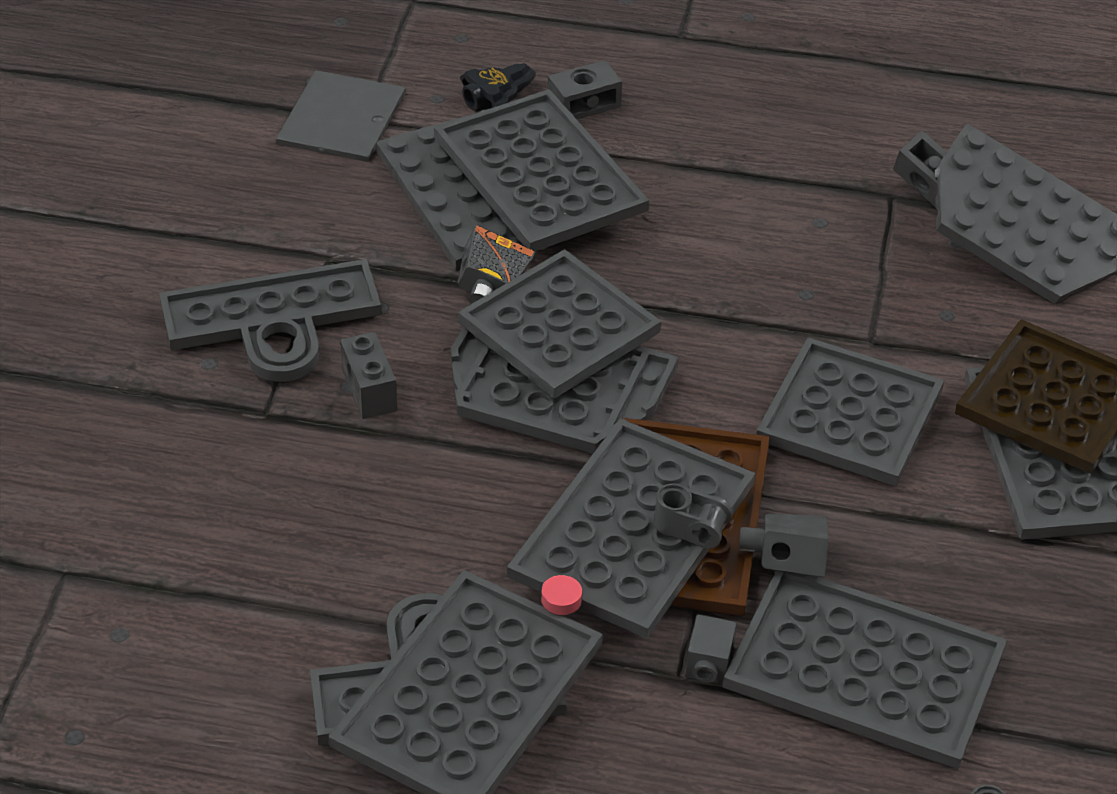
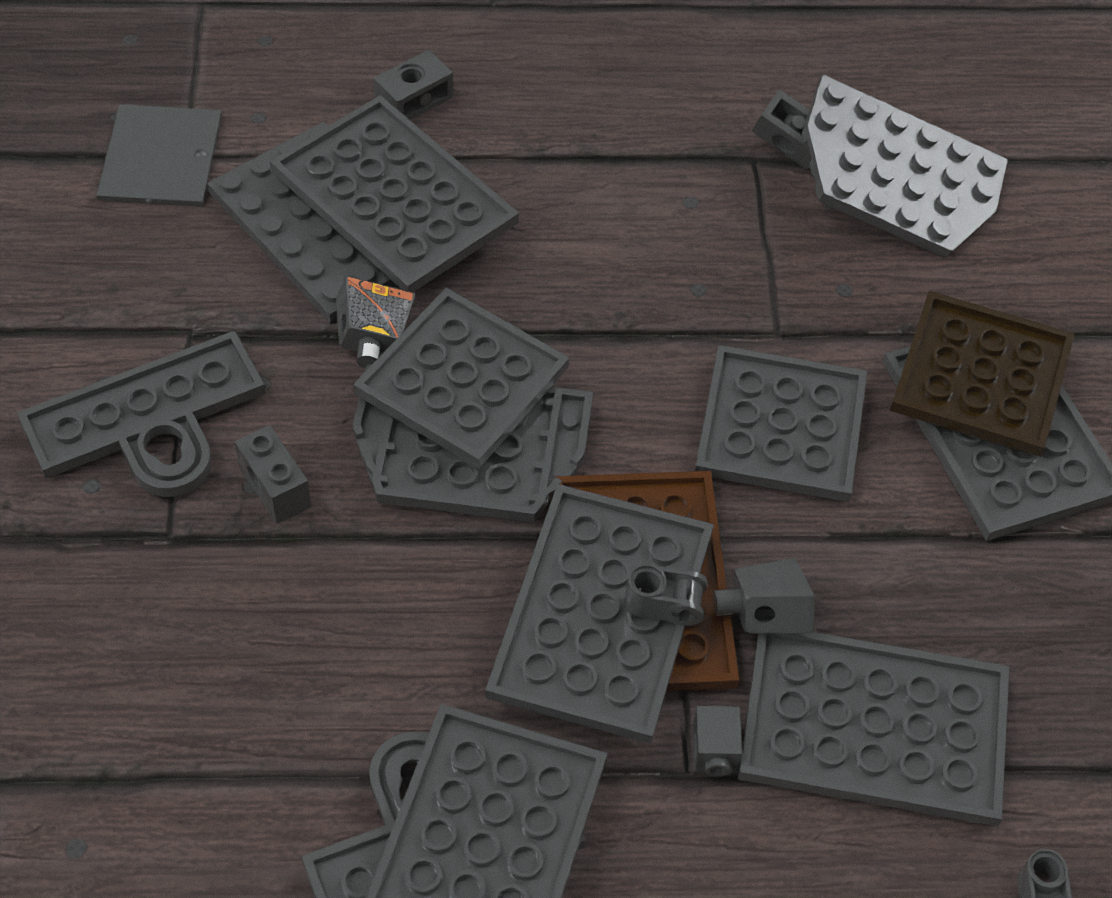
camera: 15 degrees left, 10 degrees up
(494, 85) = (317, 97): black rock -> none
(561, 595) = (554, 716): coral tile -> none

